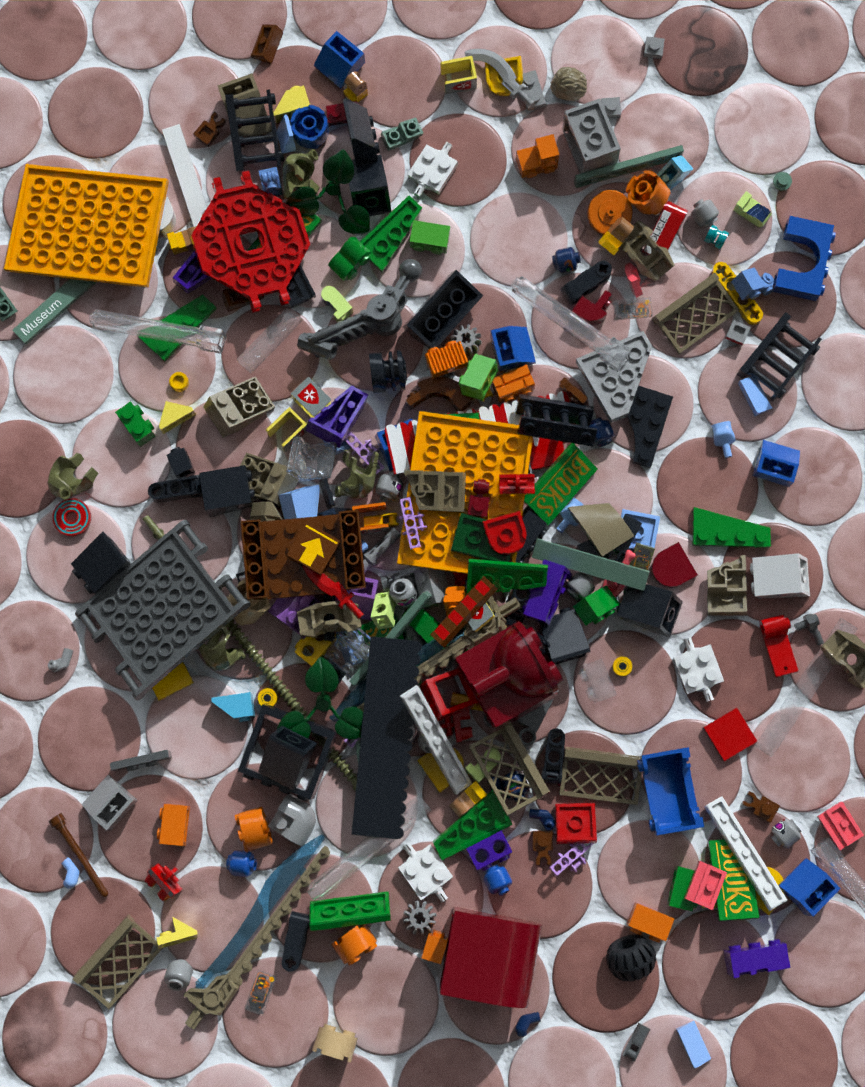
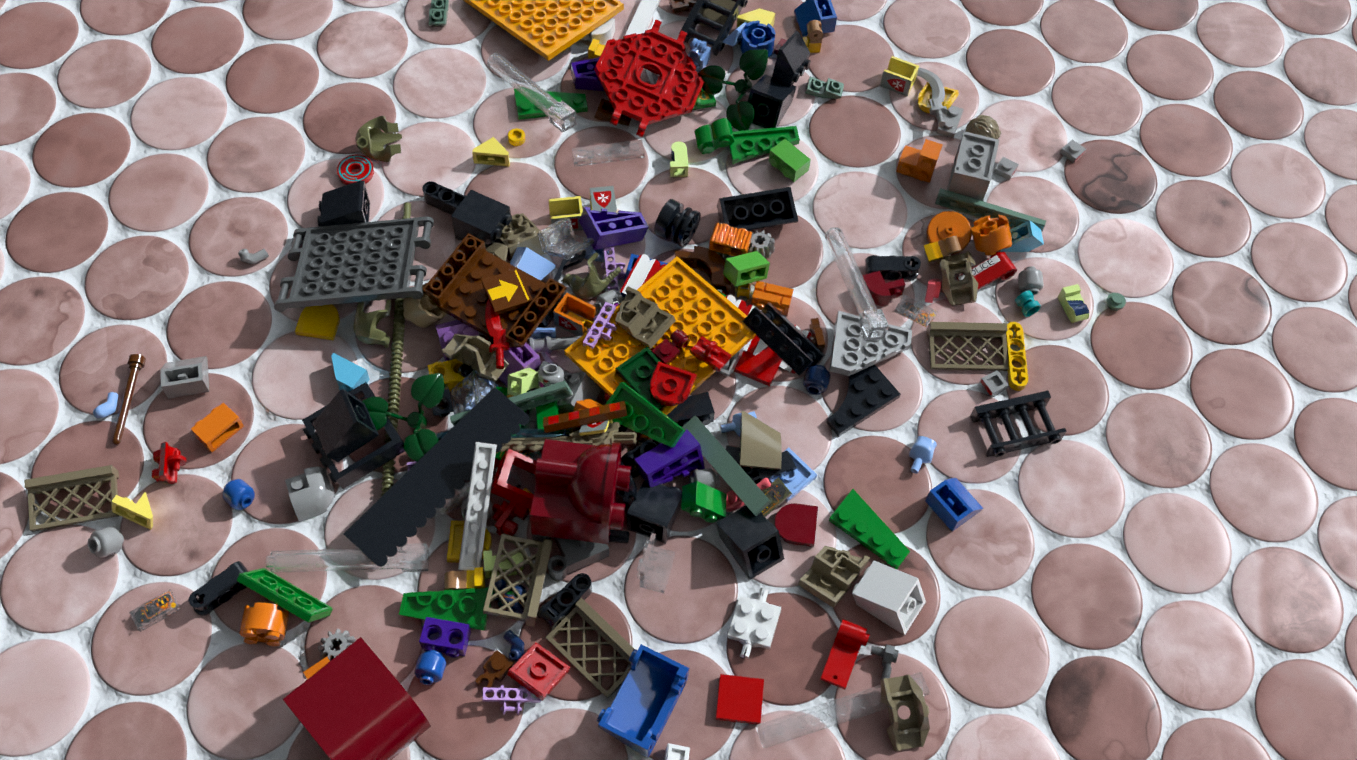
camera: 30 degrees right, 20 degrees down
(51, 309) = (471, 38): sand green tile -> none
(135, 424) = (458, 140): green brick -> none
(148, 759) = (244, 365): dark grey plate -> none
(180, 462) = (466, 181): black brick -> none
(224, 987) = (251, 540): piece -> none
(238, 406) = (543, 177): dark tan slope -> none
(253, 829) = (271, 472): orange brick -> none
(267, 696) = (379, 388): yellow tile -> none
(298, 172) = (725, 57): olive piece -> none
(299, 288) = (659, 133): black plate -> none
(335, 1043) = (170, 696): tan brick -> none
(380, 317) = (702, 183): dark grey piece -> none
(425, 872) = (376, 615): white plate -> none
(432, 169) = (829, 123): white plate -> none
(512, 347) = (792, 271): blue slope -> none
(560, 483) = (750, 392): green tile -> none
(566, 260) = (886, 242): dark blue head -> none
(622, 666) = (688, 572): yellow tile -> none
(751, 285) = (1031, 352): medium blue brick -> none
(754, 395) = (974, 440): light blue slope -> none
(818, 238) = (1086, 386): blue arch -> none

